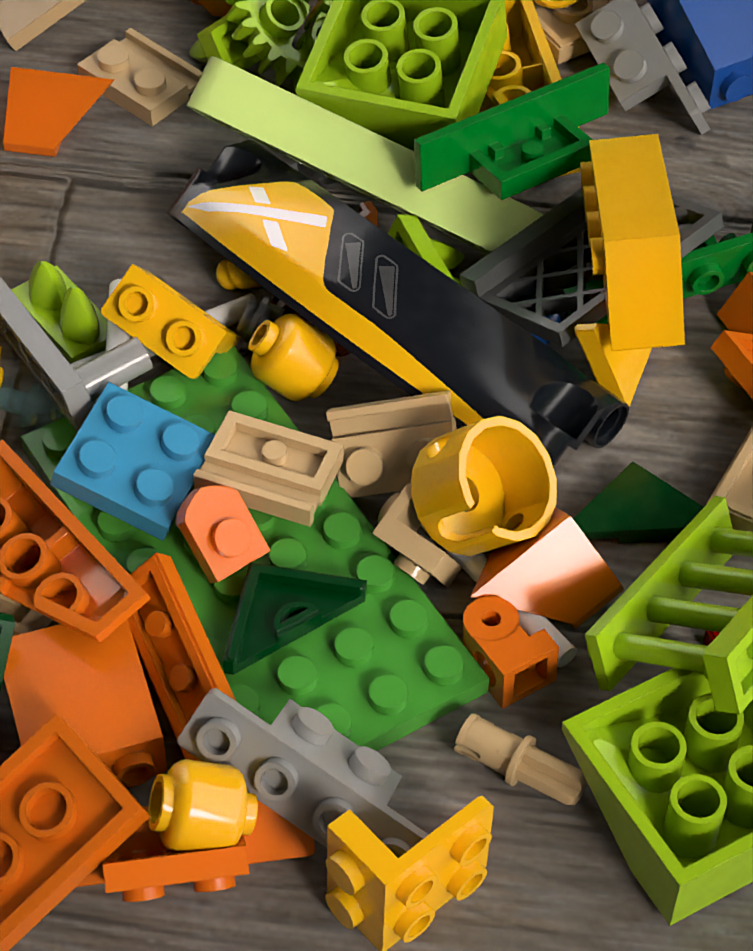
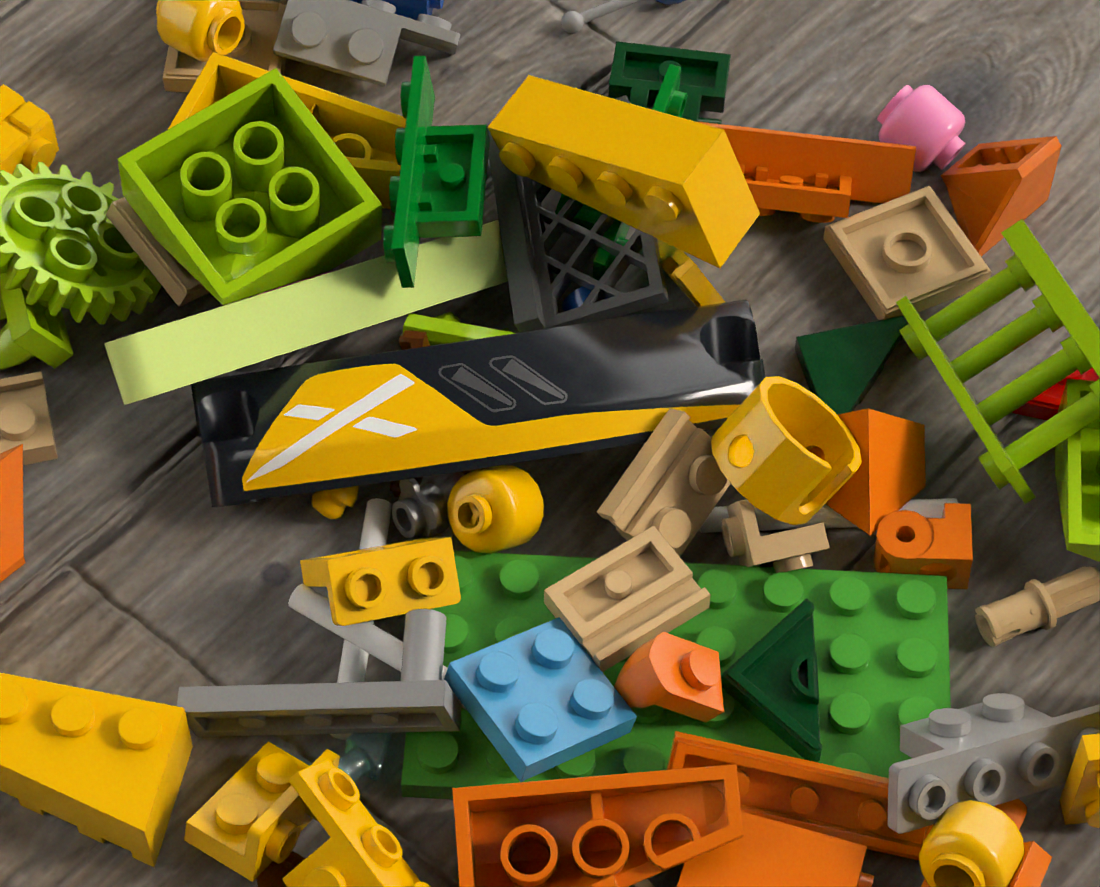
camera: 55 degrees left, 5 degrees up
(63, 312) = (268, 659): lime tile -> none

